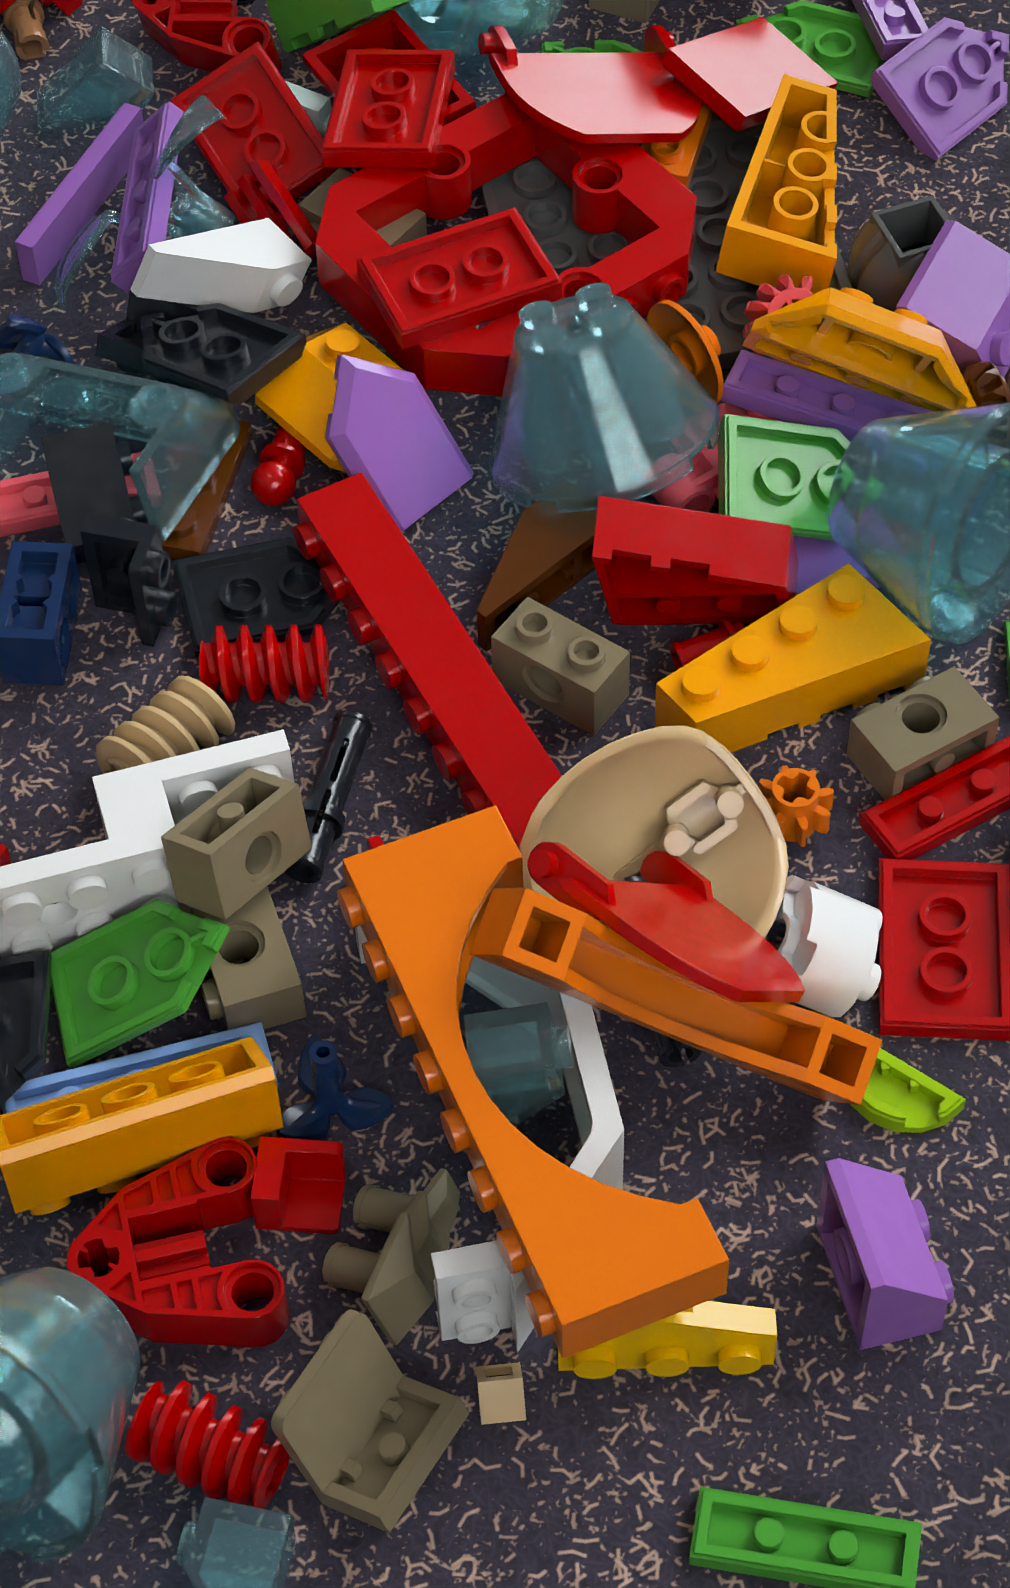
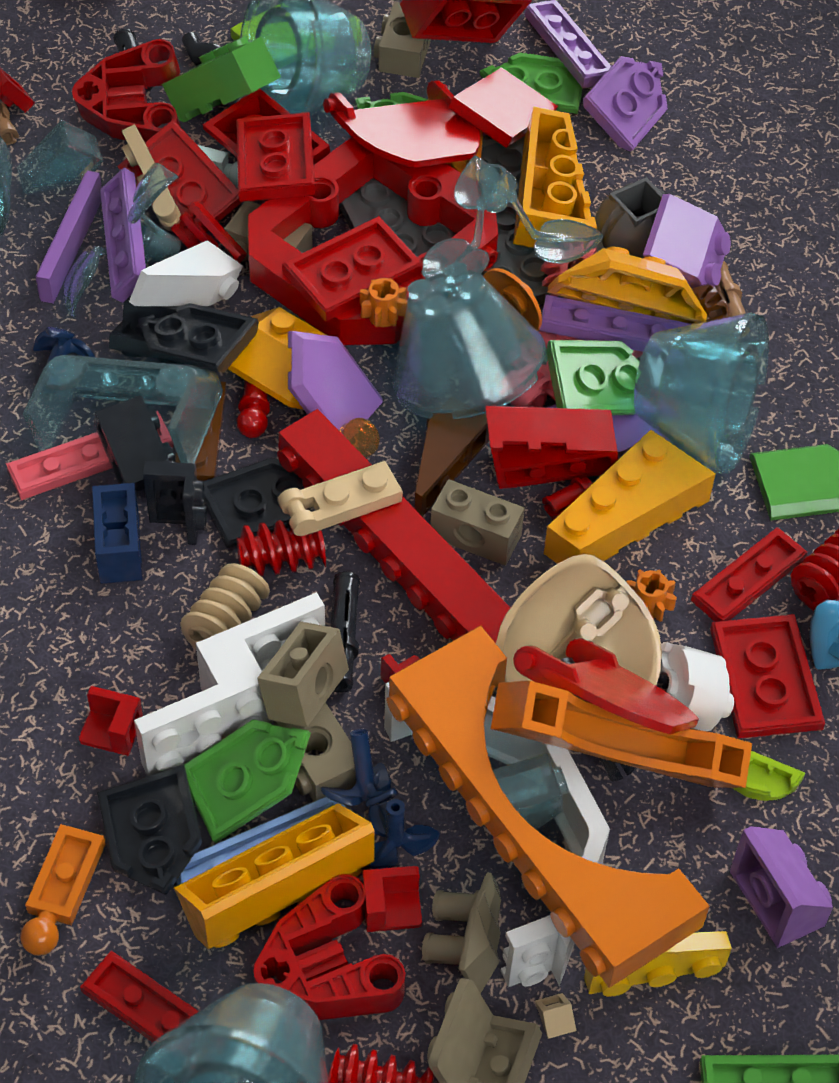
camera: 15 degrees left, 0 degrees up
(220, 159) = (138, 154): none -> tan plate
(302, 1020) = (372, 782): none -> dark blue plant
(359, 604) = (340, 498): none -> tan plate
(423, 523) = (362, 435): none -> clear orange tile
(485, 330) = (383, 302): none -> orange gear
(680, 184) = (490, 189): none -> clear light blue plant
(920, 732) = (718, 535): dark tan brick -> none

